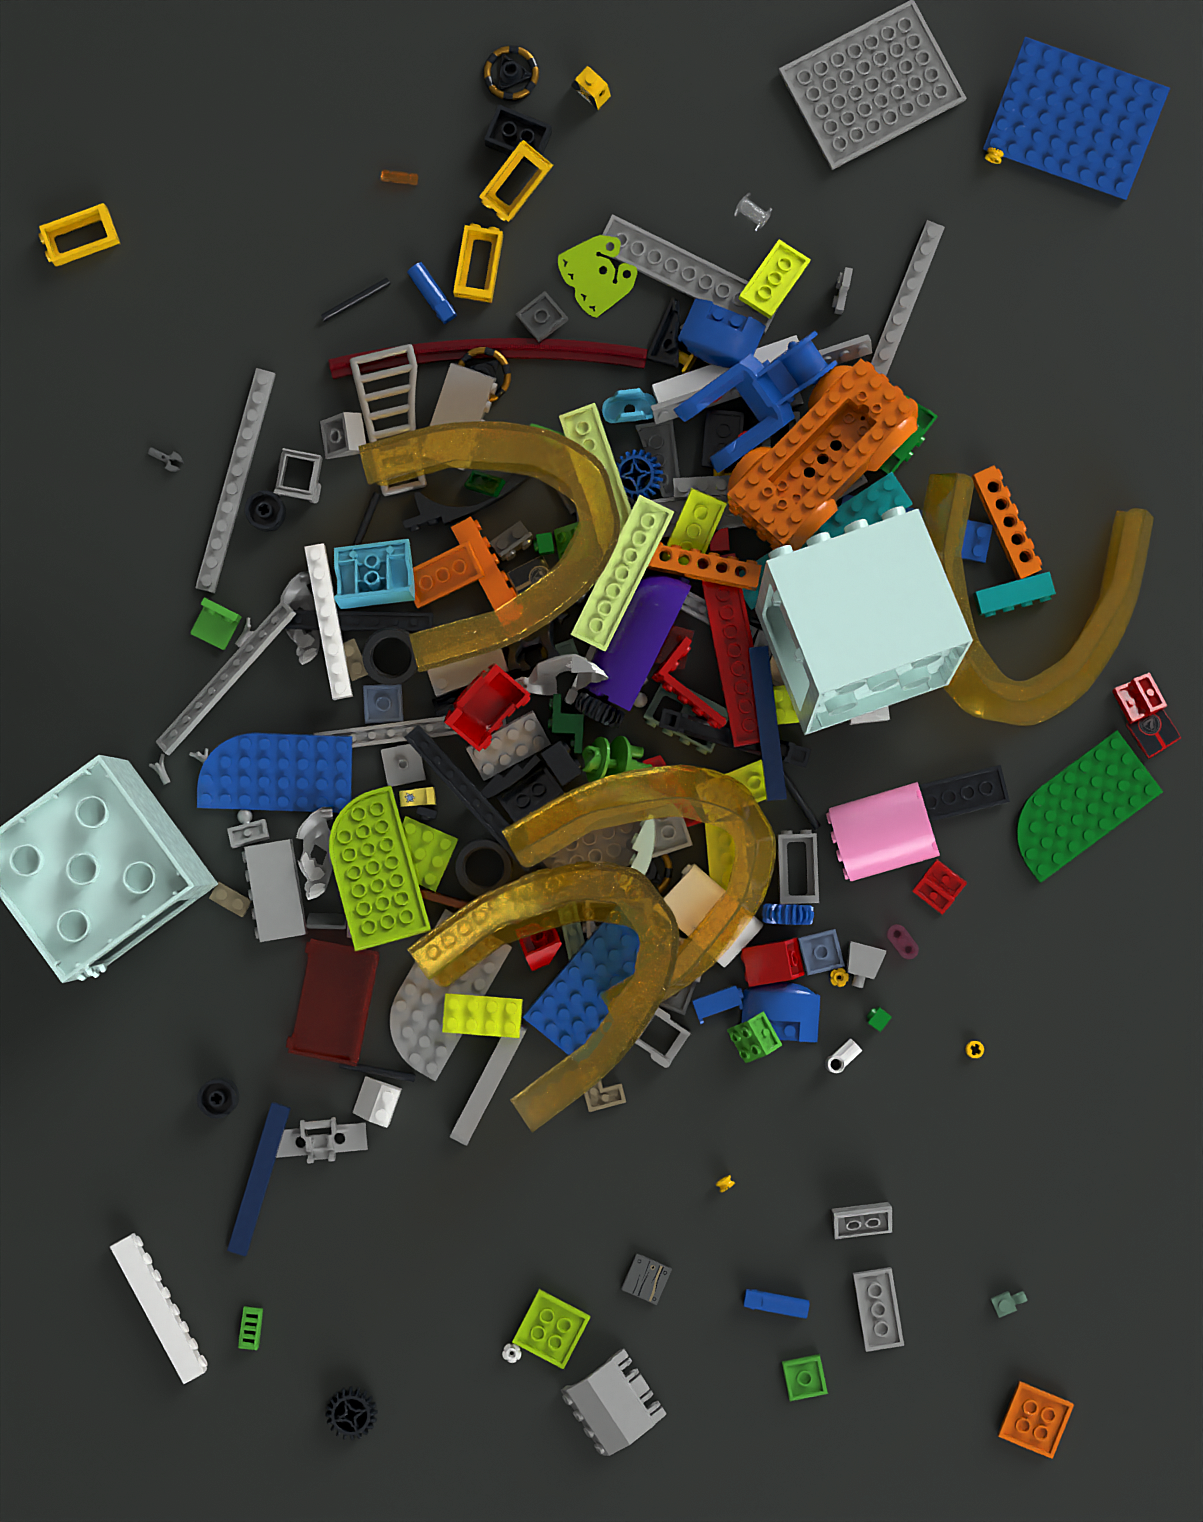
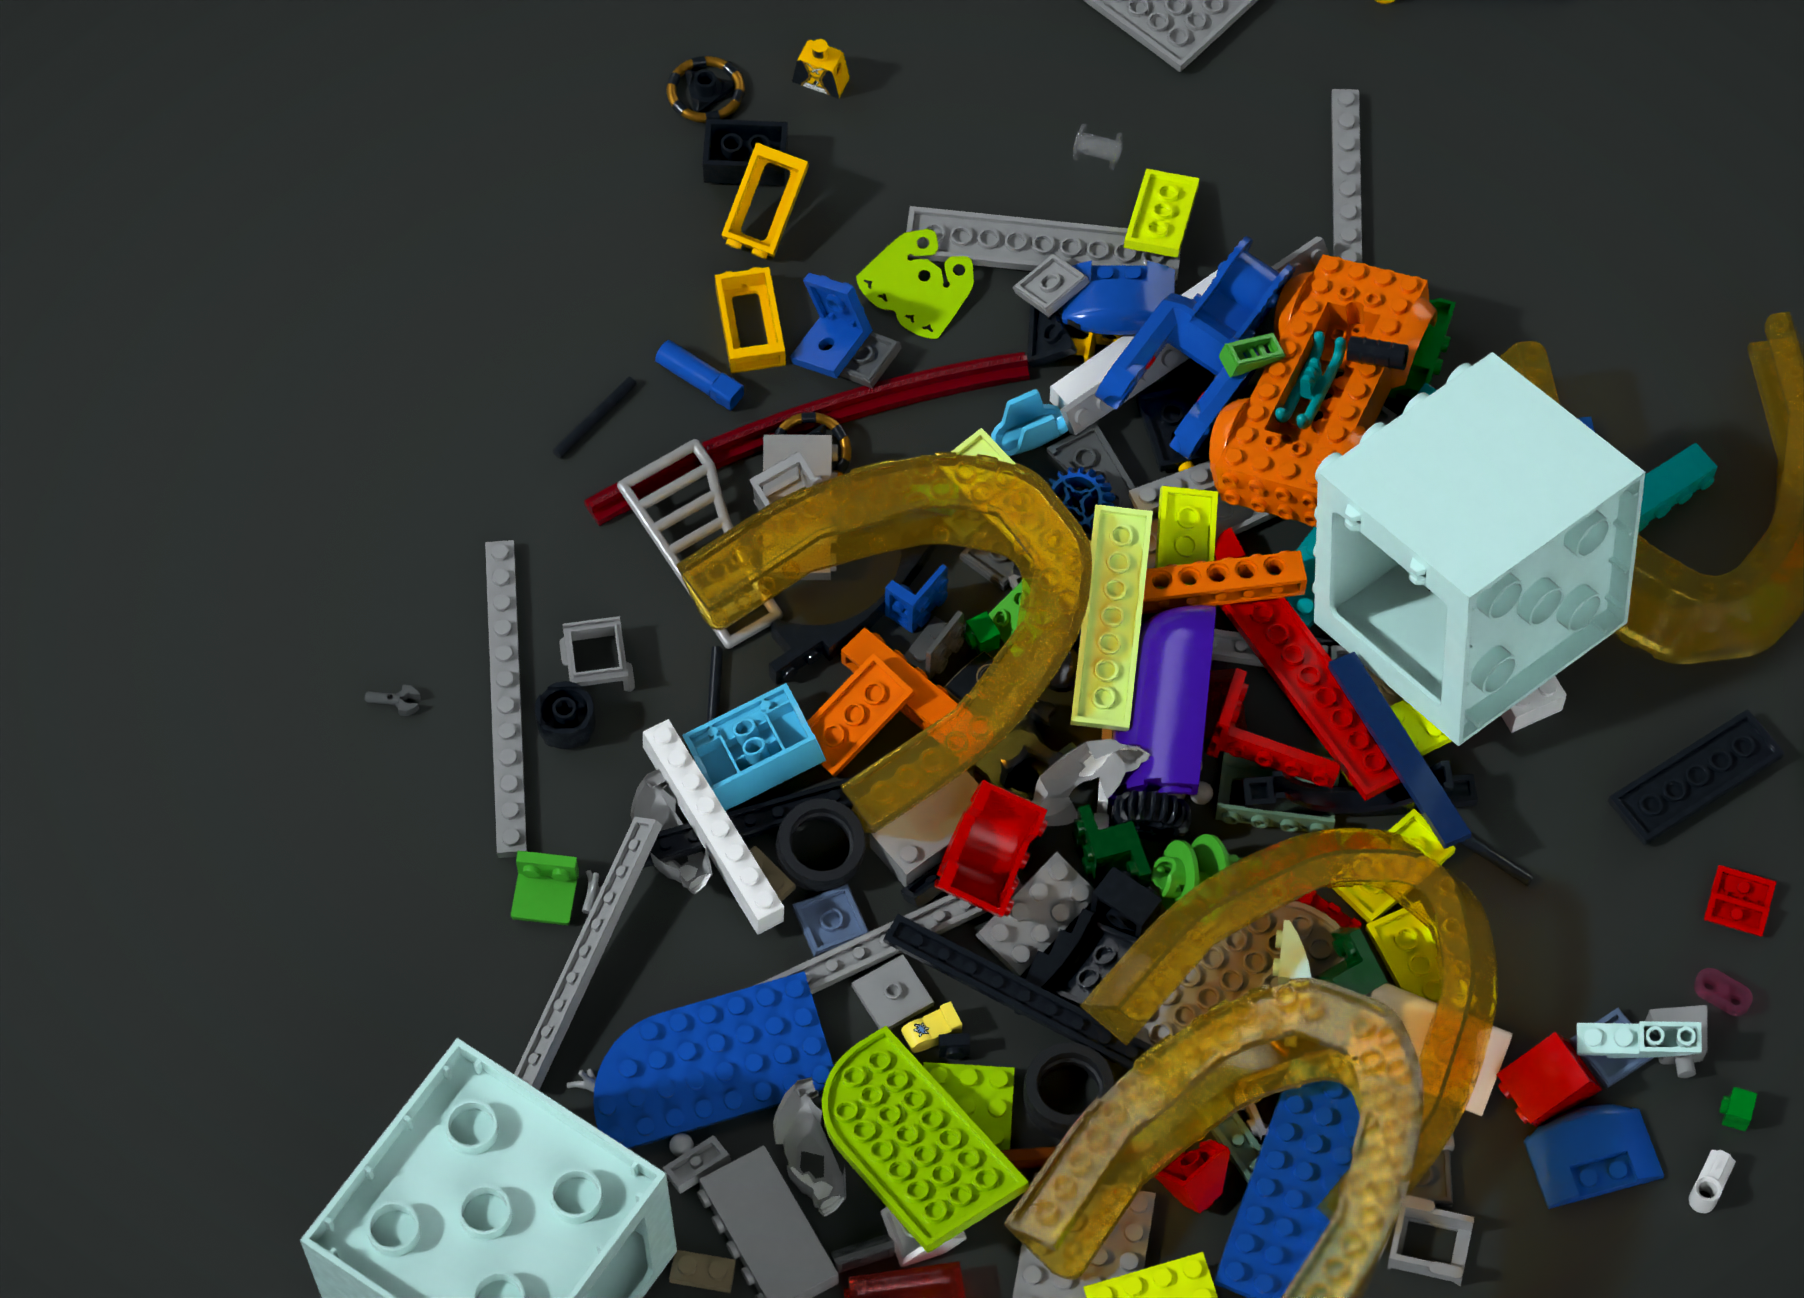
camera: 20 degrees left, 25 degrees down
(72, 222) = (164, 439): yellow piece -> none
(342, 434) = (641, 586): light grey slope -> none
(399, 177) = (600, 252): clear orange axle -> none
(446, 411) = (802, 478): none -> light grey piece
(484, 483) = (865, 582): dark green plate -> none
(510, 516) = (912, 609): none -> blue bracket
(530, 288) = (840, 324): none -> blue bracket
(673, 865) = (1359, 968): none -> dark green bracket
(680, 310) = (1051, 285): none -> light grey plate
(718, 1002) = (1493, 1166): blue brick -> none
(754, 1038) = (1569, 1195): bright green bracket -> none
(765, 421) = (1235, 361): none -> bright green slope
(788, 914) = (1541, 1002): blue gear -> none
(811, 863) = (1528, 899): light grey piece -> none
(814, 452) = (1312, 383): none -> teal piece
(834, 977) = (1654, 1080): yellow plate -> none
(835, 959) = (1639, 1040): none -> light aqua slope
(842, 284) = (1256, 195): light grey plate -> none
(860, 454) = (1377, 352): none -> black axle
(882, 832) = (1629, 849): bright pink cylinder -> none
(1004, 533) = (1611, 420): orange brick -> none

